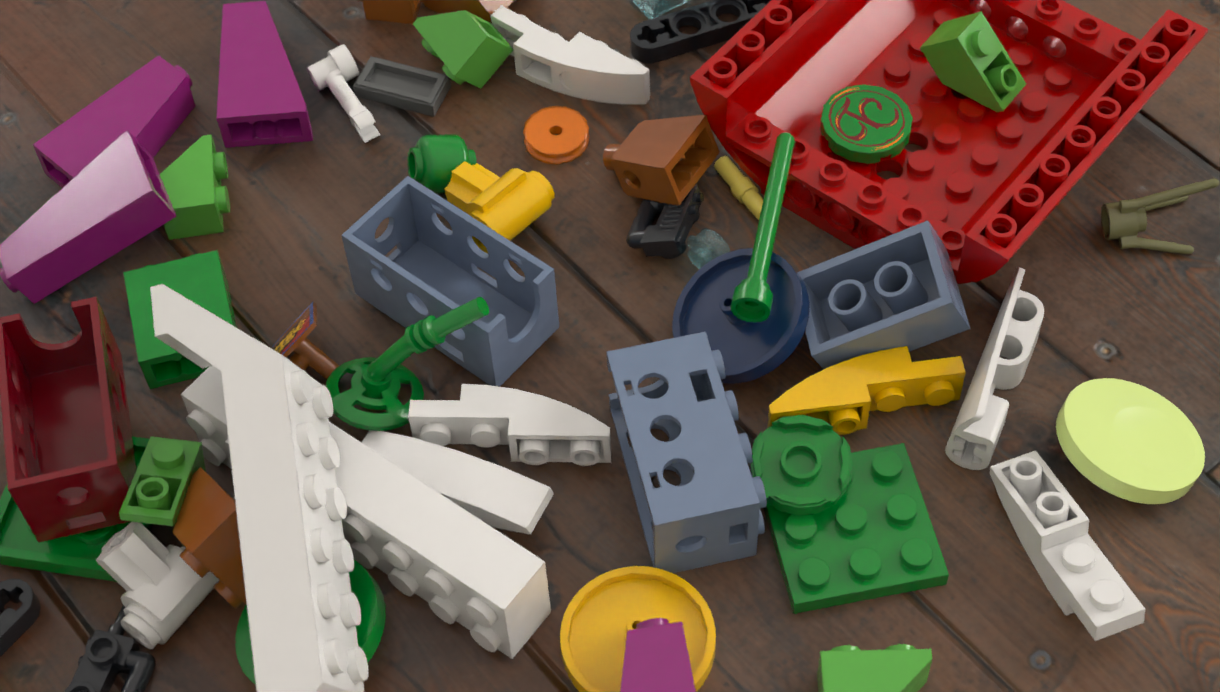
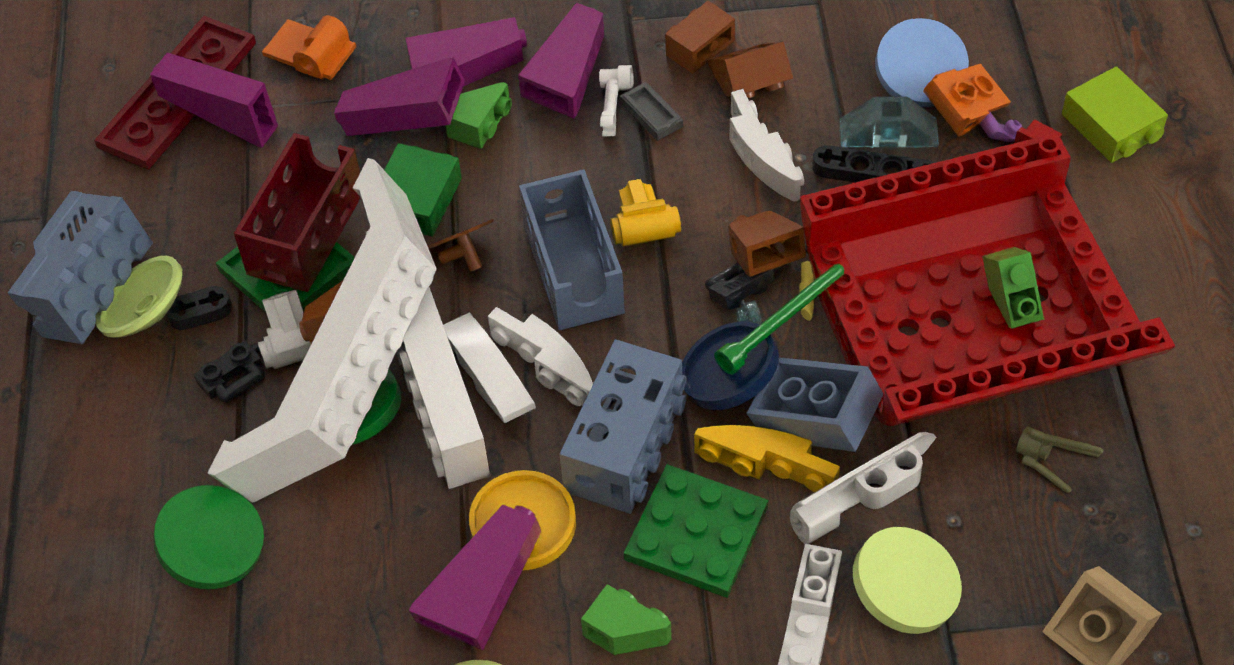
camera: 35 degrees right, 0 degrees up
(162, 481) = (319, 275): bright green slope -> none
(379, 379) = (493, 286): green dish -> none
(436, 158) = (630, 167): green head -> none
(465, 44) = (703, 105): bright green slope -> none
(550, 148) = (720, 181): orange piece -> none
(801, 464) = (688, 474): green tile -> none
(866, 123) = (910, 288): green tile -> none

